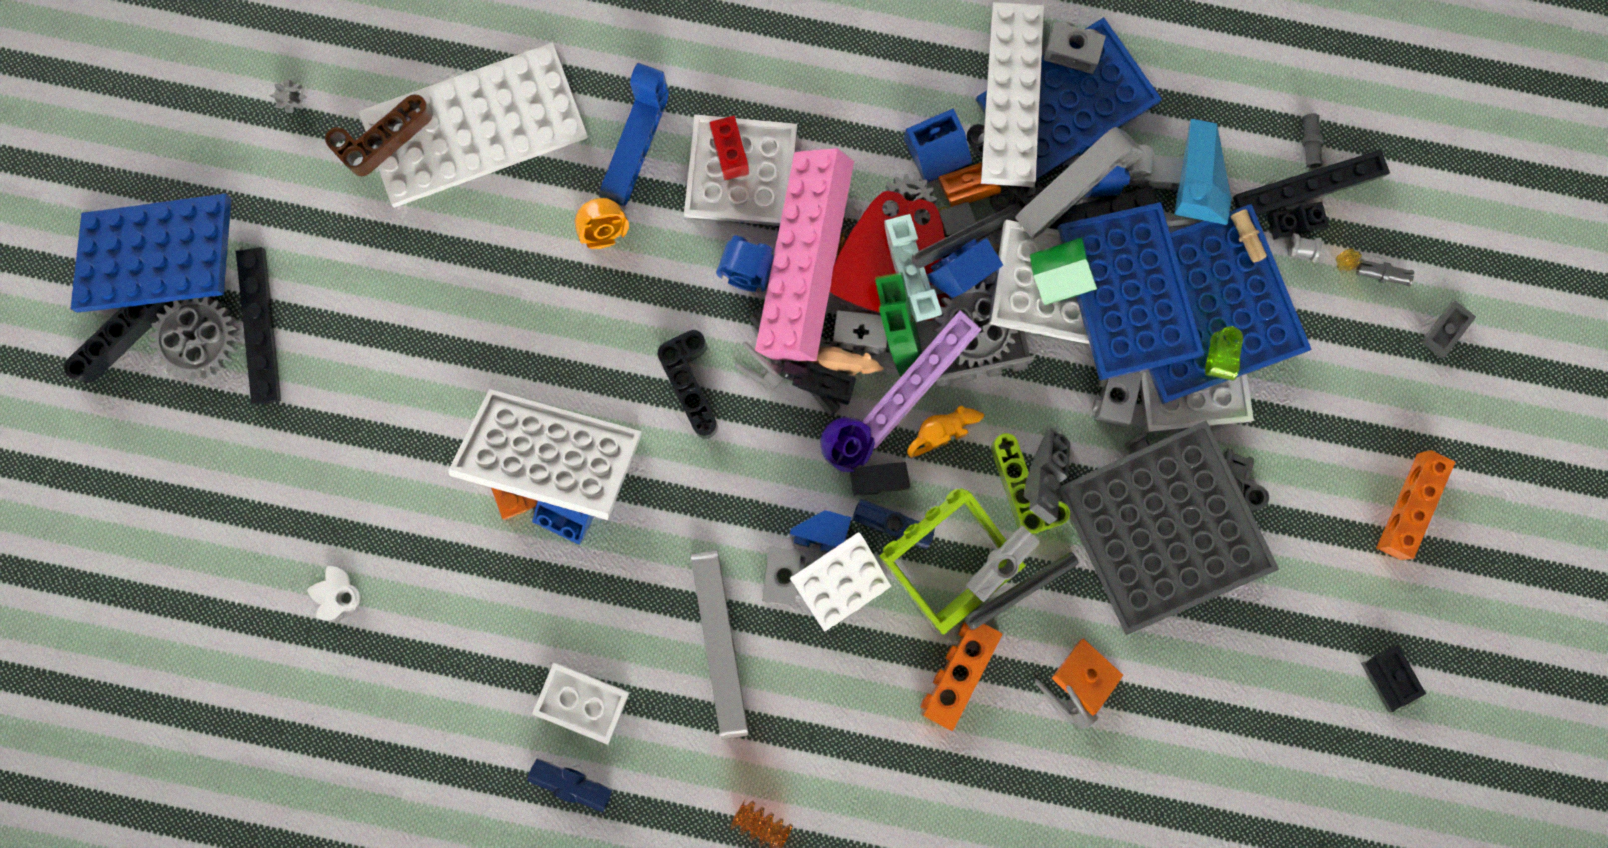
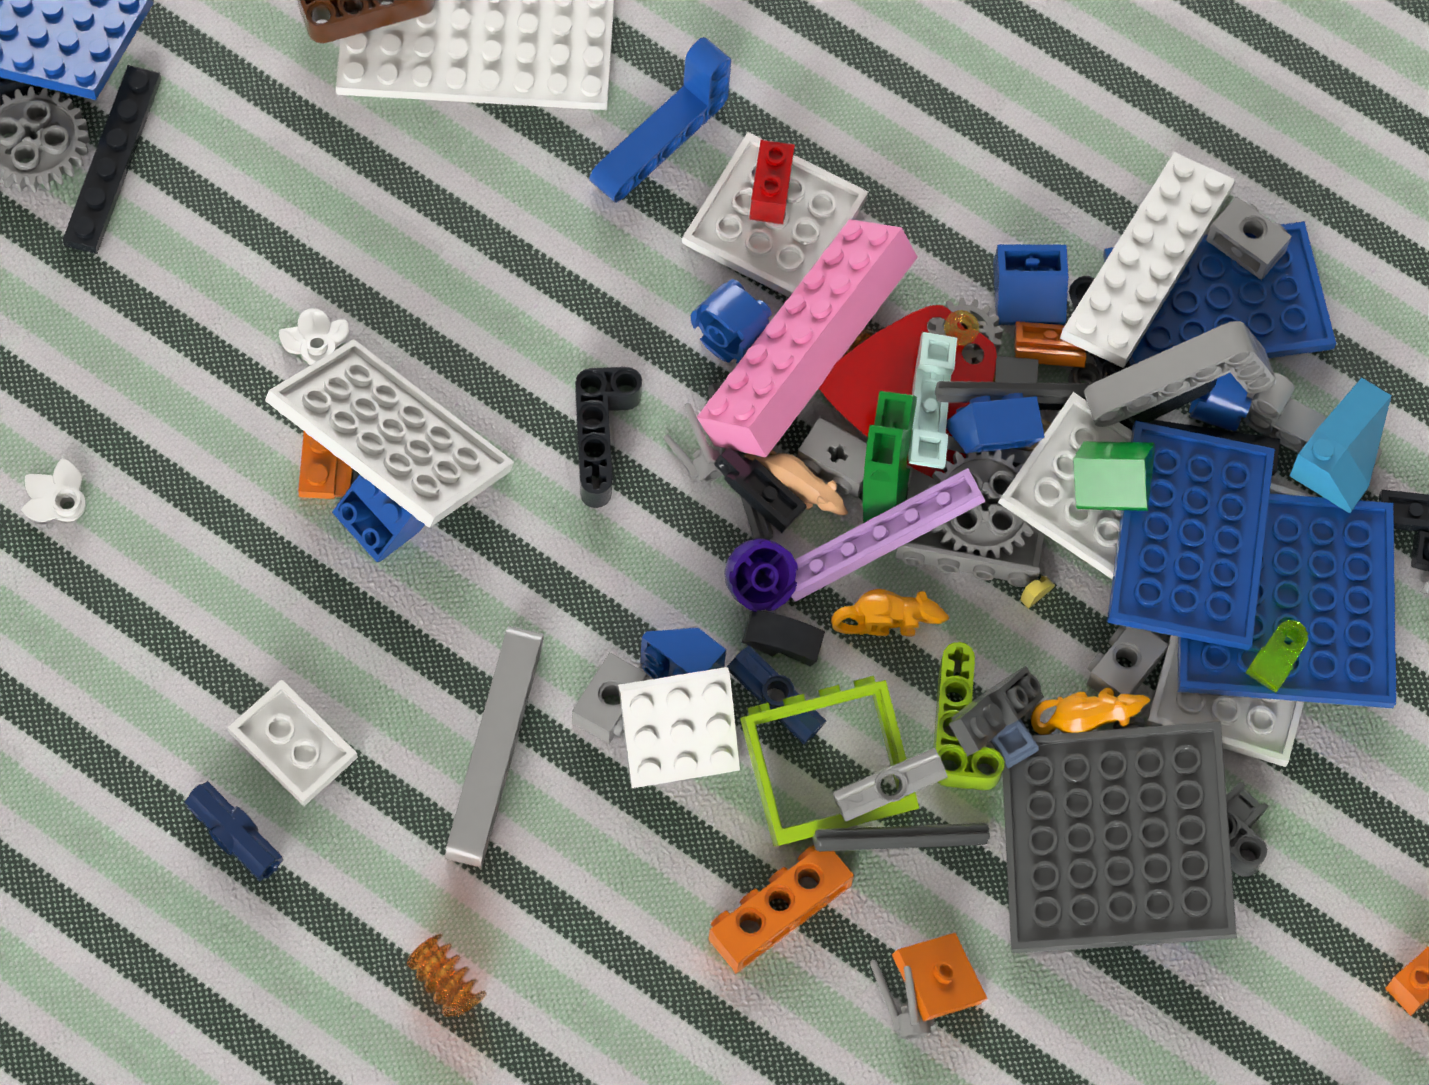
camera: 20 degrees right, 15 degrees down
(459, 395) = (314, 335): none -> white plate
(600, 223) = (576, 206): light orange cylinder -> none
(904, 209) = (952, 330): none -> clear yellow plate
(1035, 369) = (1036, 590): none -> light yellow tile
(1070, 490) = (1014, 743): none -> sand blue tile
(1105, 448) = (1085, 713): none -> light orange animal
(1248, 235) = (1371, 534): tan axle -> none

